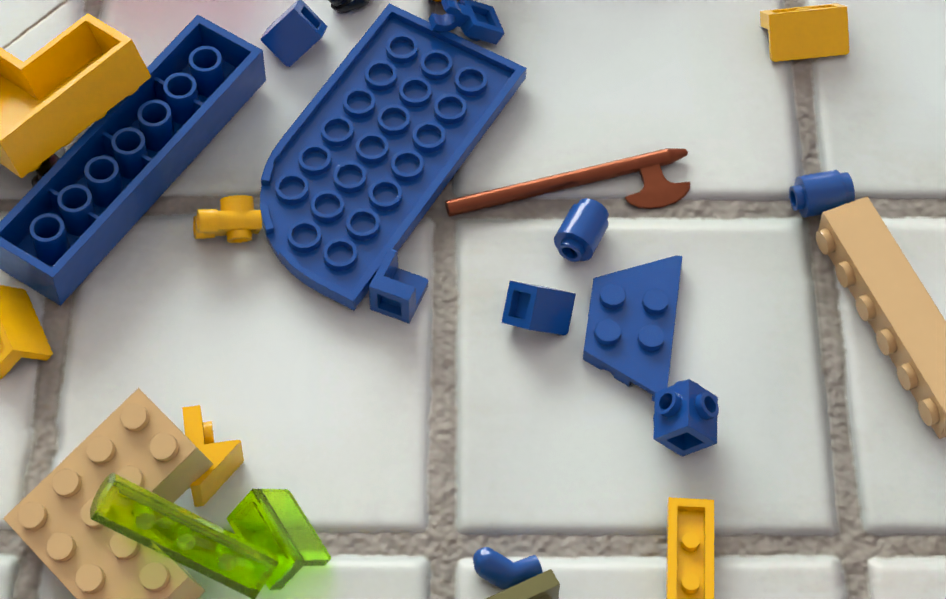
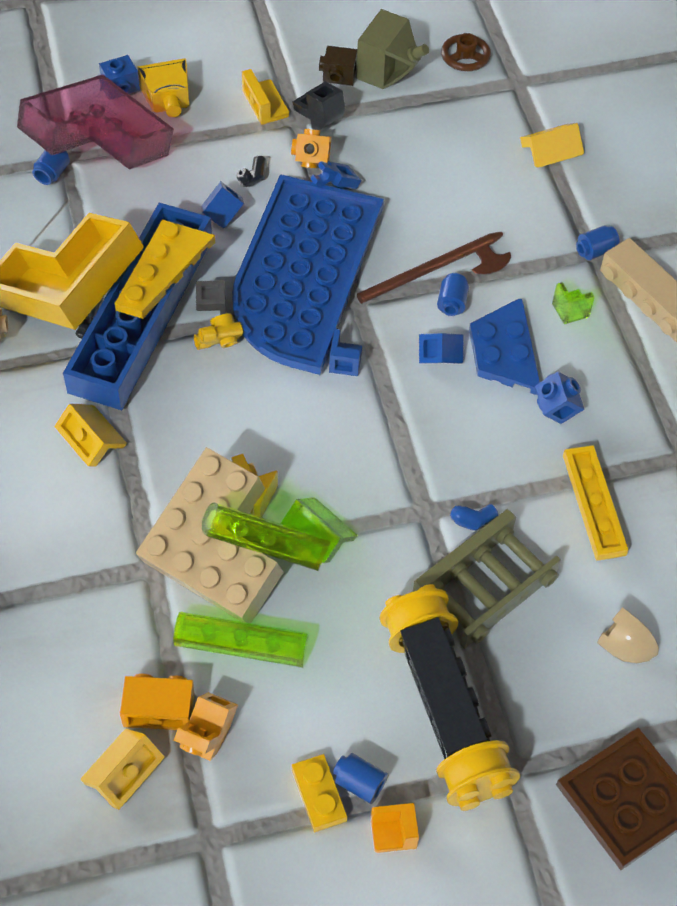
camera: 15 degrees left, 0 degrees up
(168, 108) = (161, 265): none -> yellow wing
(231, 166) = (211, 296): none -> flat silver panel
(753, 280) = (572, 305): none -> clear neon green panel

